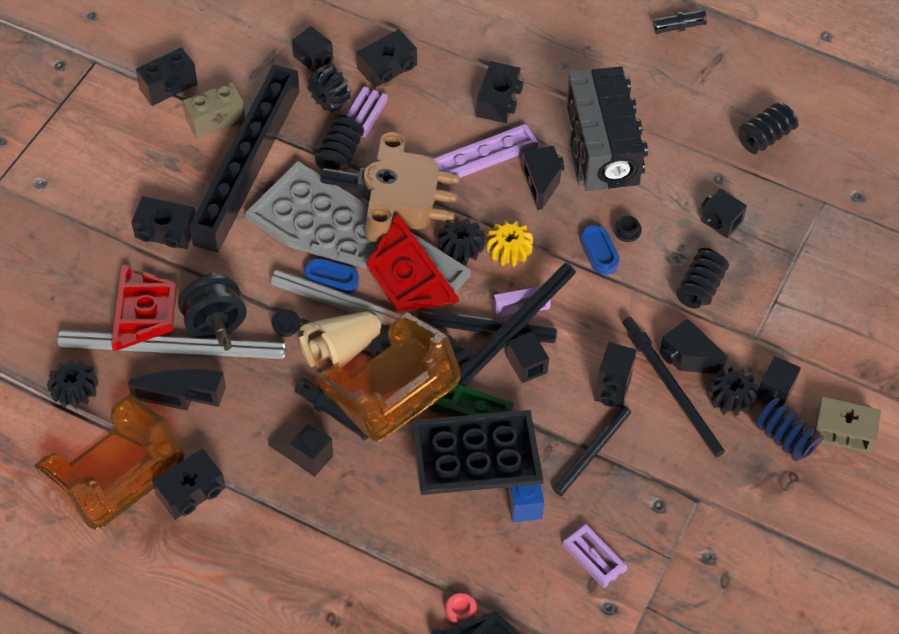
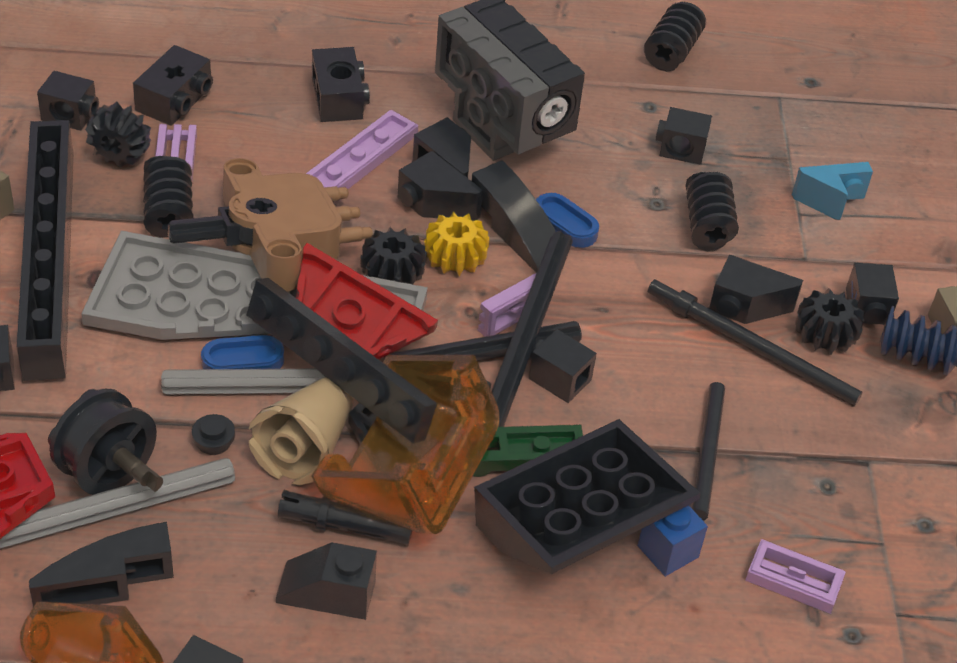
camera: 30 degrees left, 10 degrees down
(376, 305) = (342, 360): none -> black plate
(520, 198) = (437, 188): none -> black slope
(563, 233) = (514, 212): none -> black slope
(615, 375) = (690, 345): black brick -> none
(627, 229) = (585, 186): black plate -> none
(801, 286) = (830, 186): none -> dark azure slope

